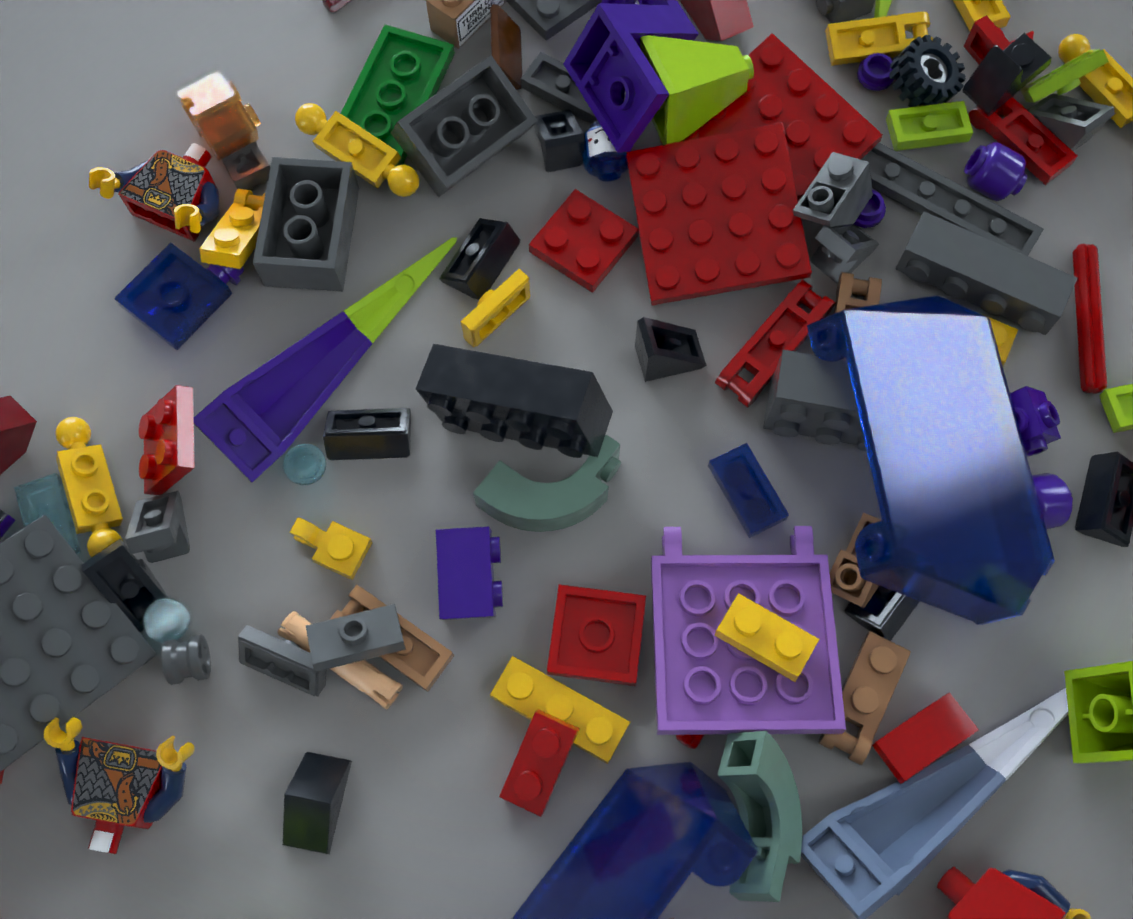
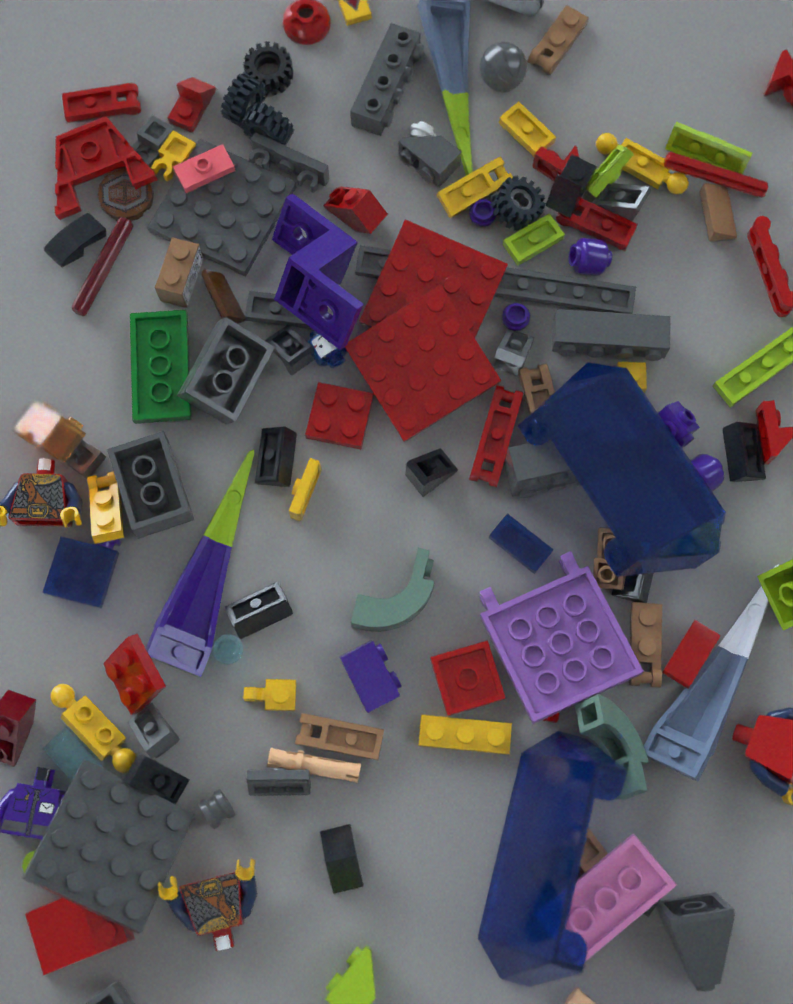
camera: 25 degrees left, 5 degrees up
(166, 619) = (190, 790): clear light blue plate -> none
(350, 143) = (159, 417): yellow plate -> none
(354, 637) = (320, 747): dark grey plate -> none
(516, 400) = (352, 552): black brick -> none
(539, 762) = (468, 772): red plate -> none
(699, 81) = (370, 279): lime slope -> none
(766, 637) = (573, 635): yellow plate -> none
(837, 192) = (495, 320): dark grey slope -> none
(1089, 319) = (687, 335): red axle -> none

